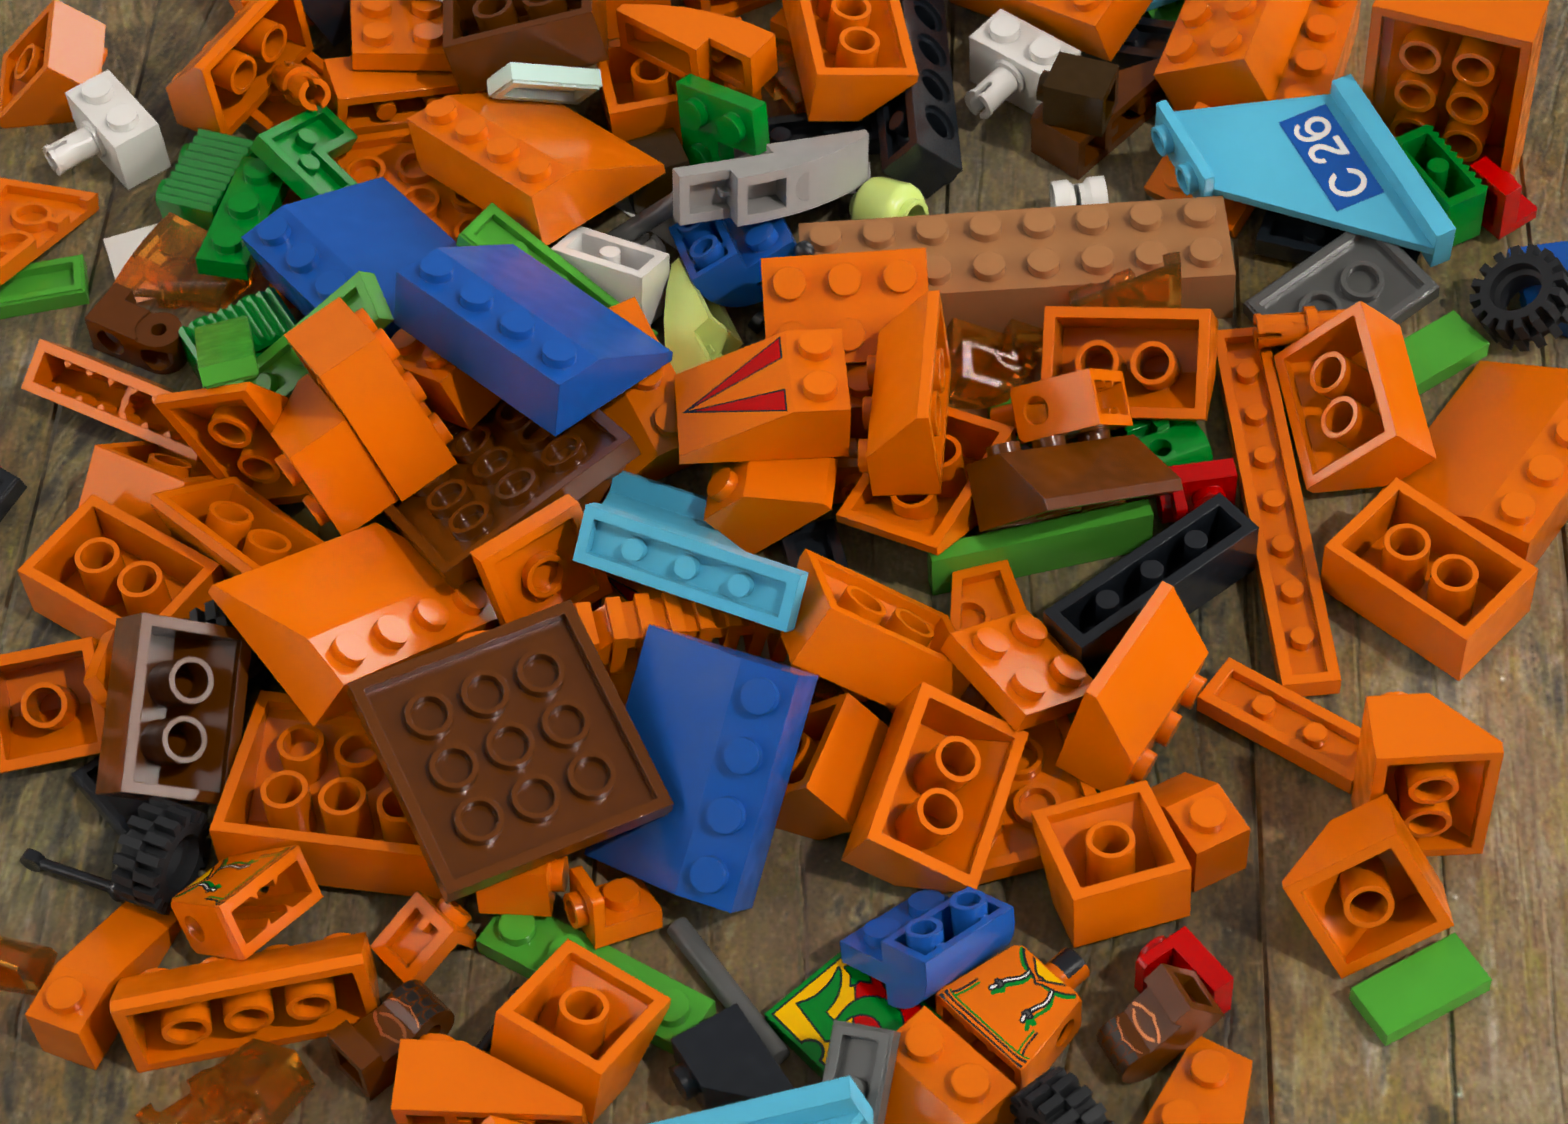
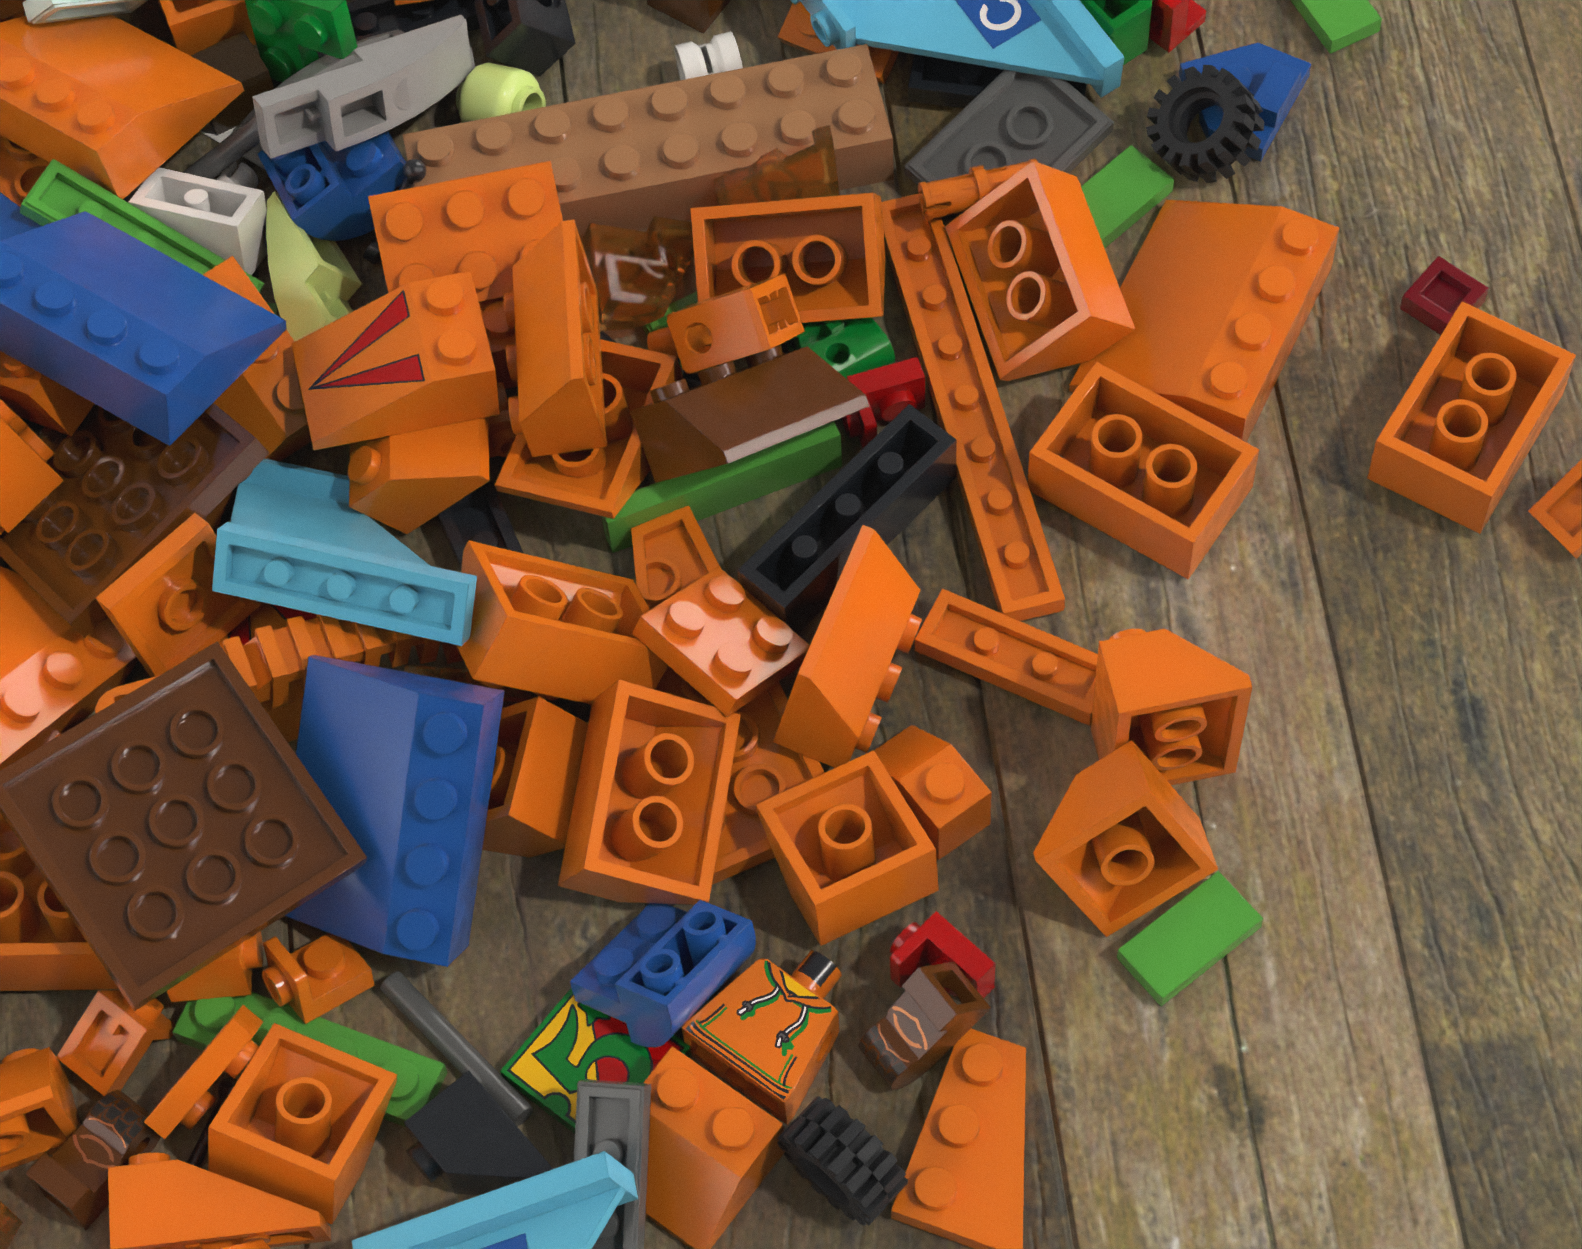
camera: 10 degrees left, 10 degrees up
(481, 992) = (189, 1095): none -> orange plate

